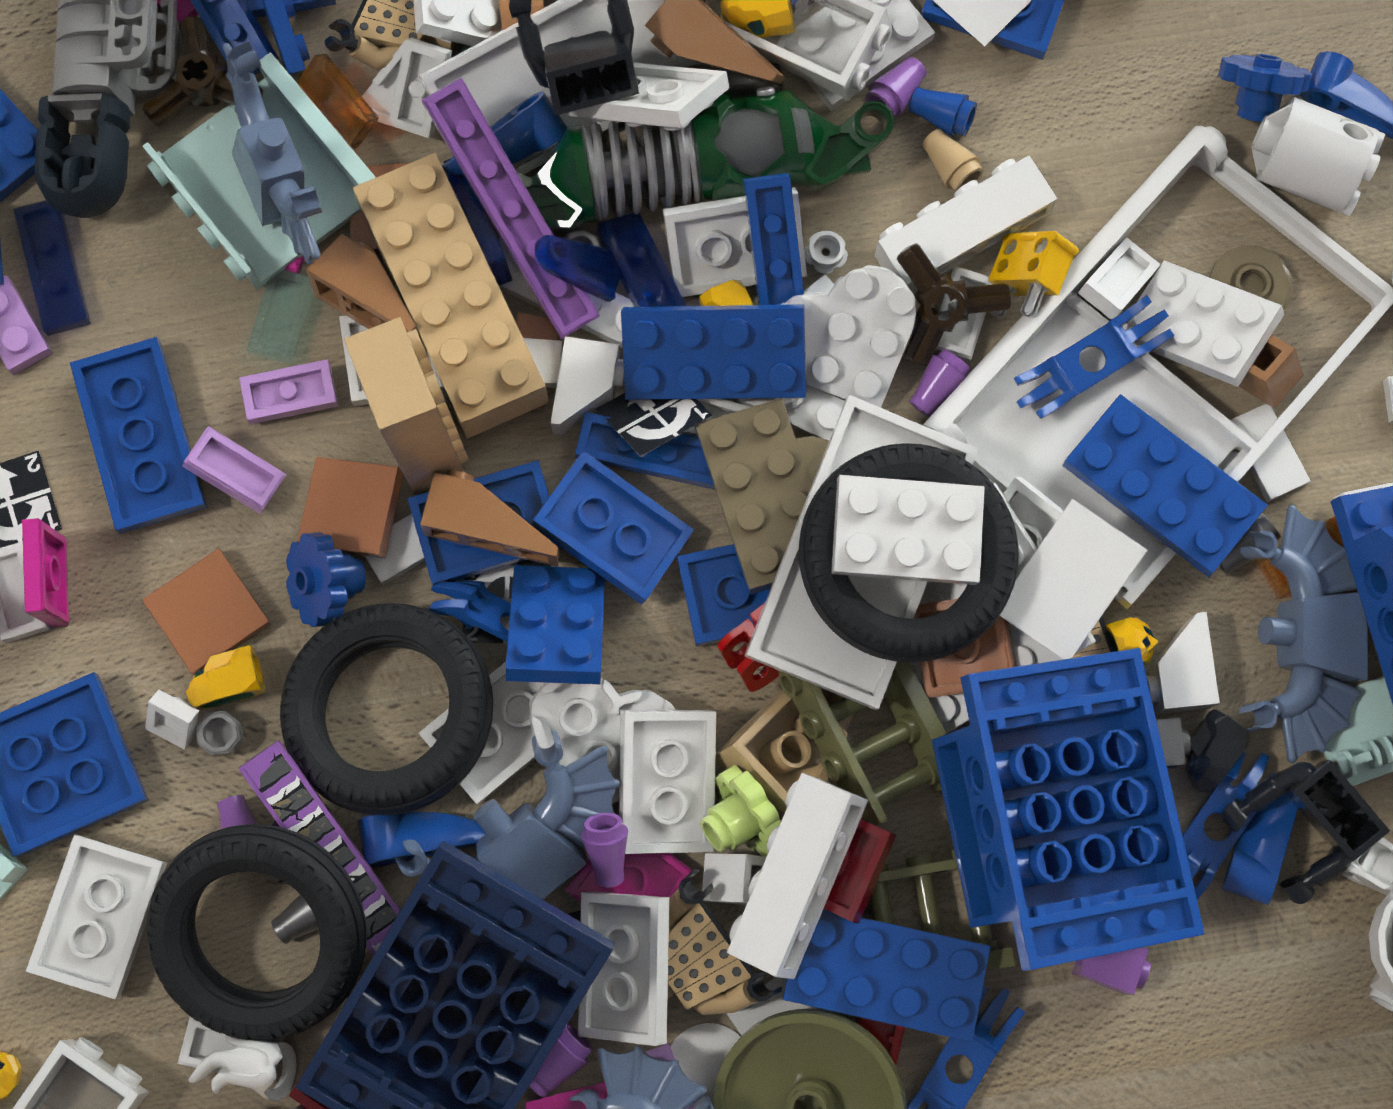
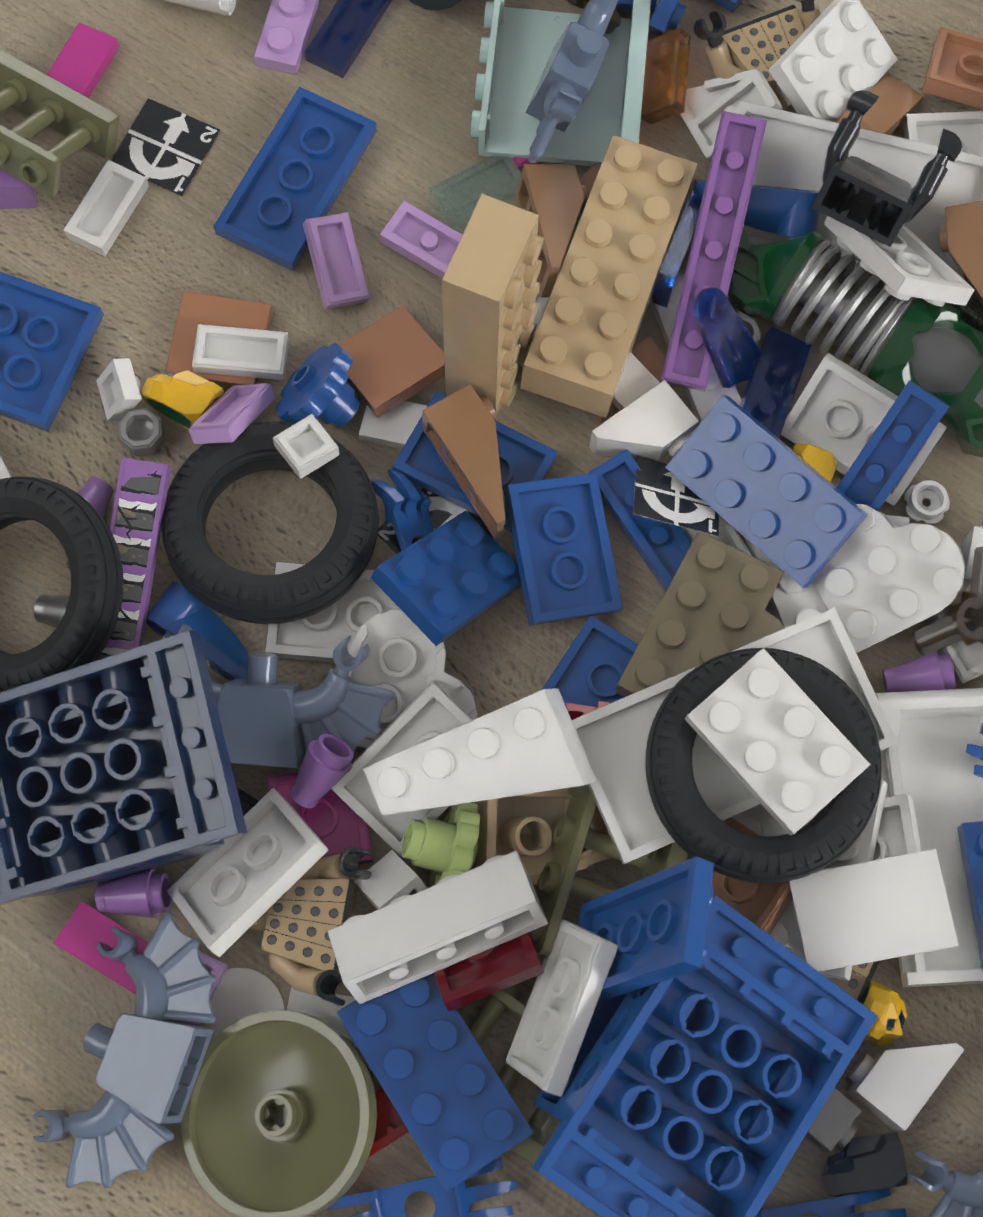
camera: 45 degrees right, 5 degrees down
(45, 573) = (135, 207): dark pink tile -> none
(234, 605) = (240, 352): none -> white tile
(278, 657) = (232, 413): none -> lavender tile
(361, 630) = (306, 446): none -> white tile
(725, 723) = (496, 756): none -> white wedge
(931, 846) = (561, 1007): none -> white tile
(943, 747) = (655, 925): none -> blue plate

